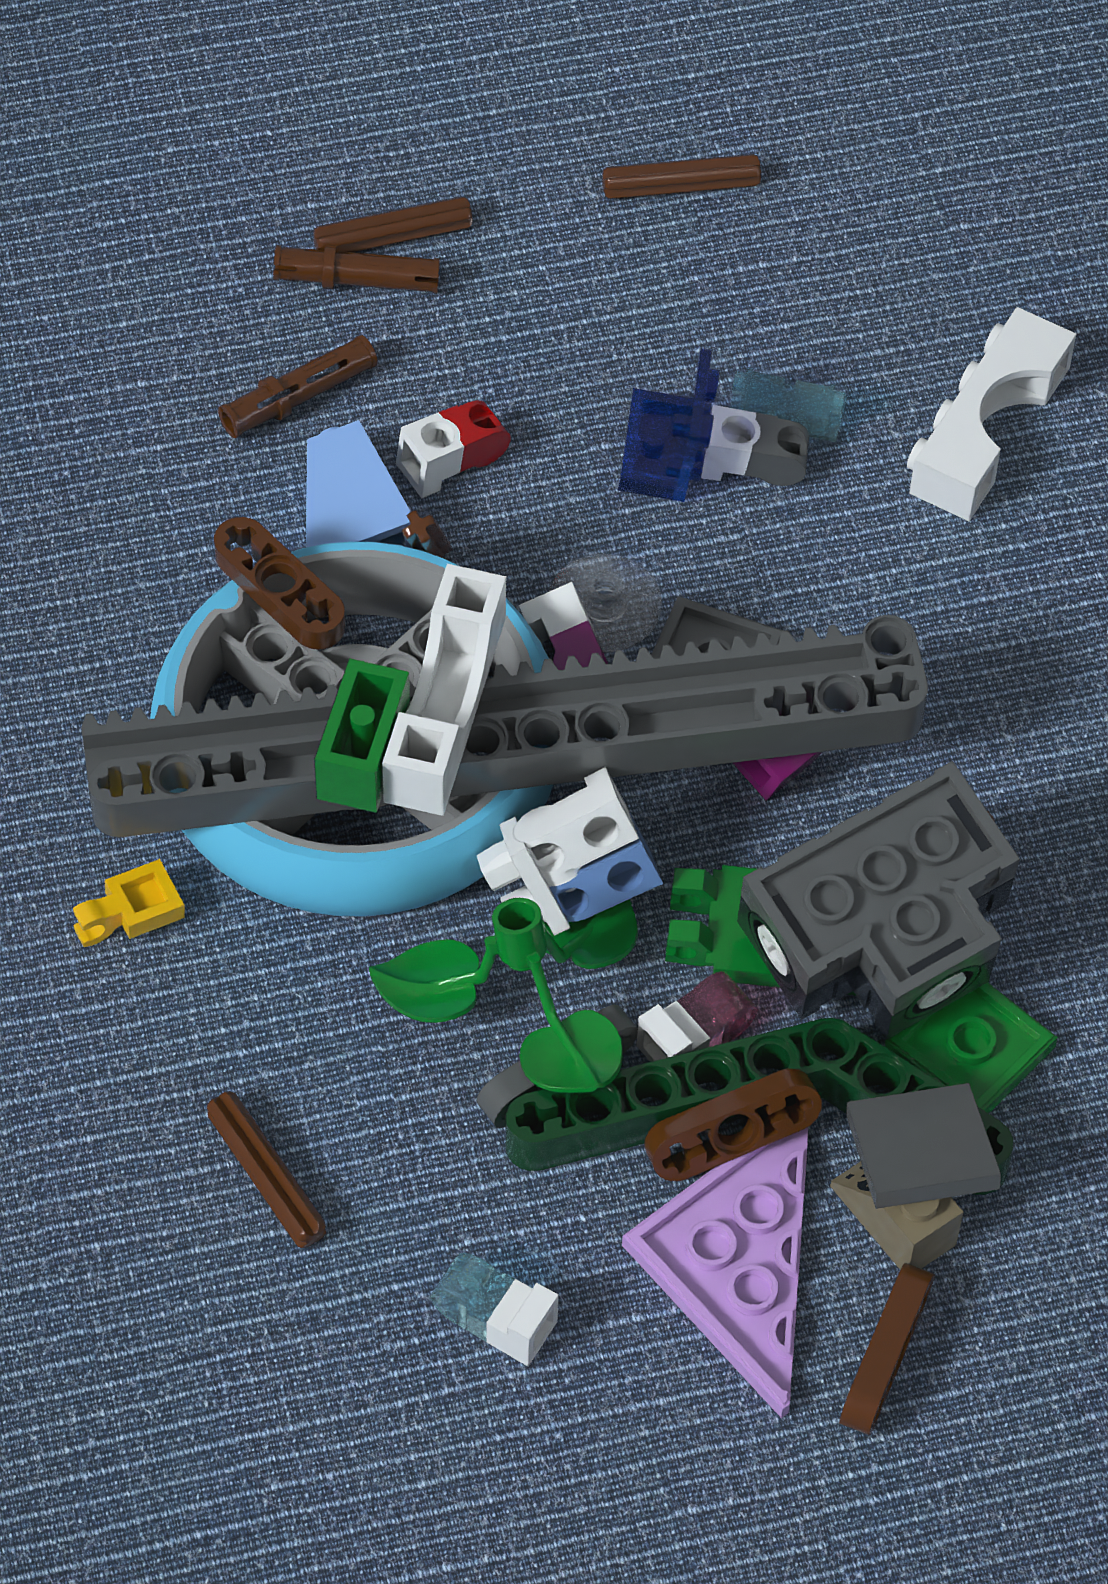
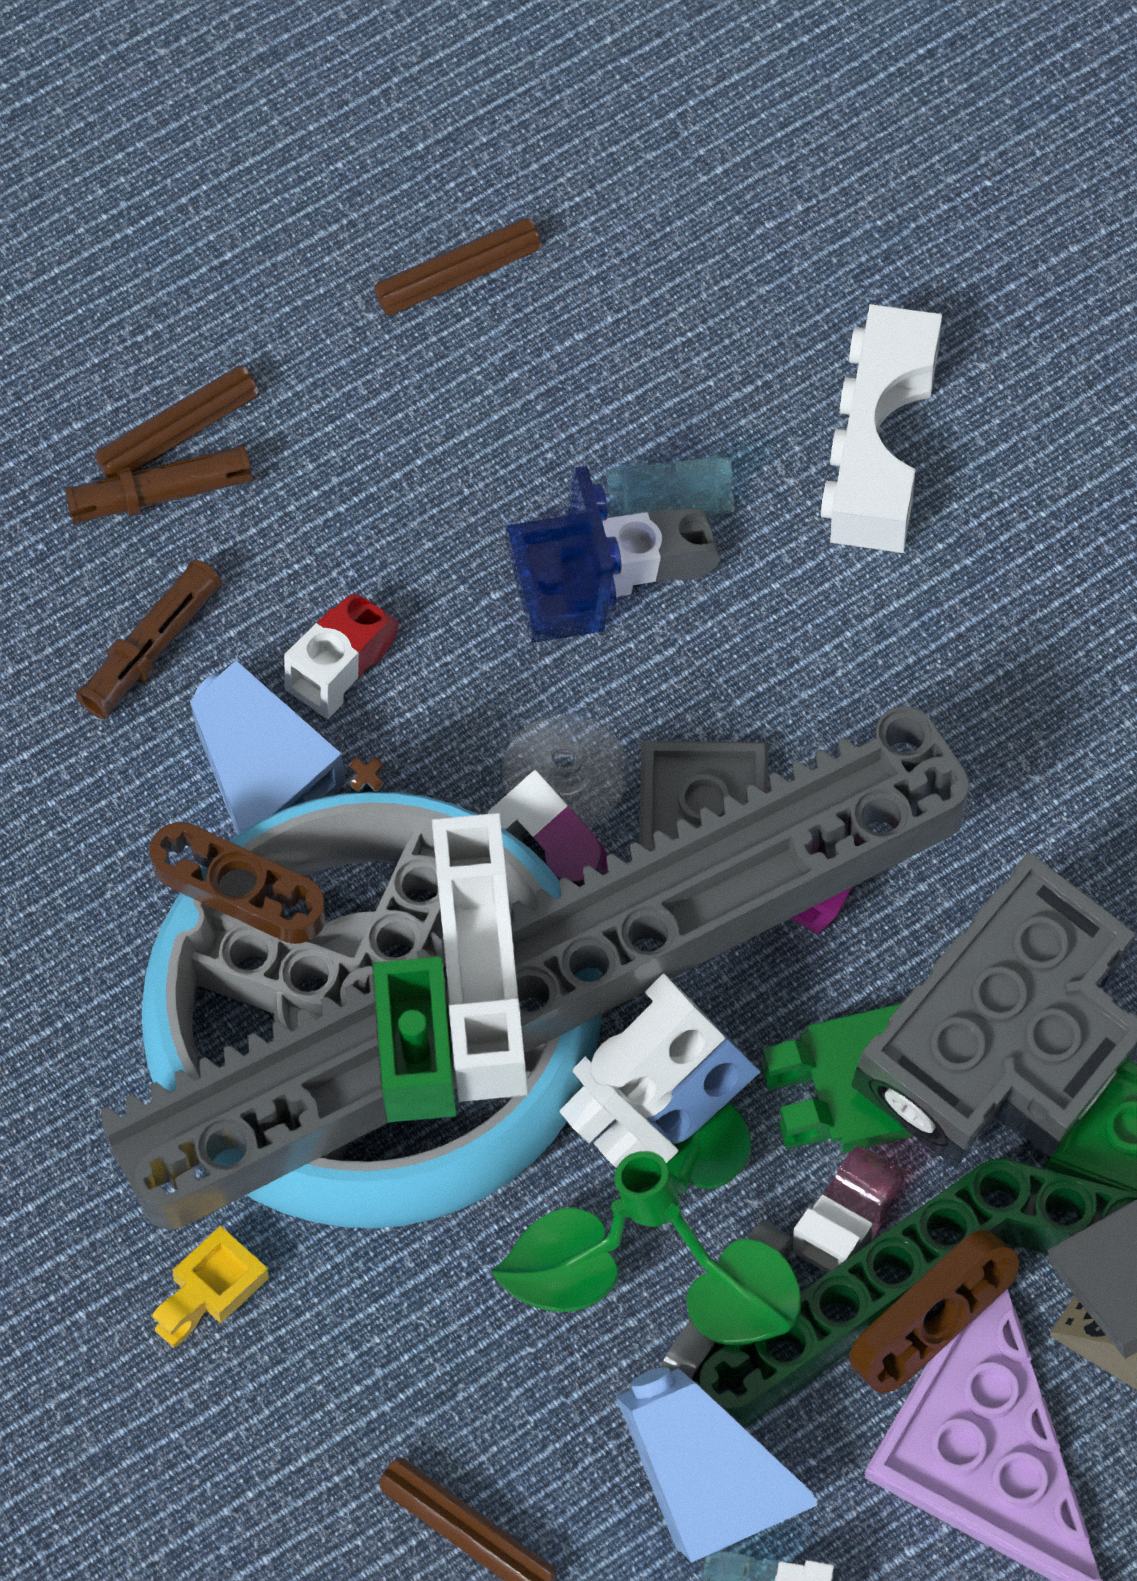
camera: 15 degrees left, 5 degrees up
(482, 1178) = (705, 1466): none -> light blue slope

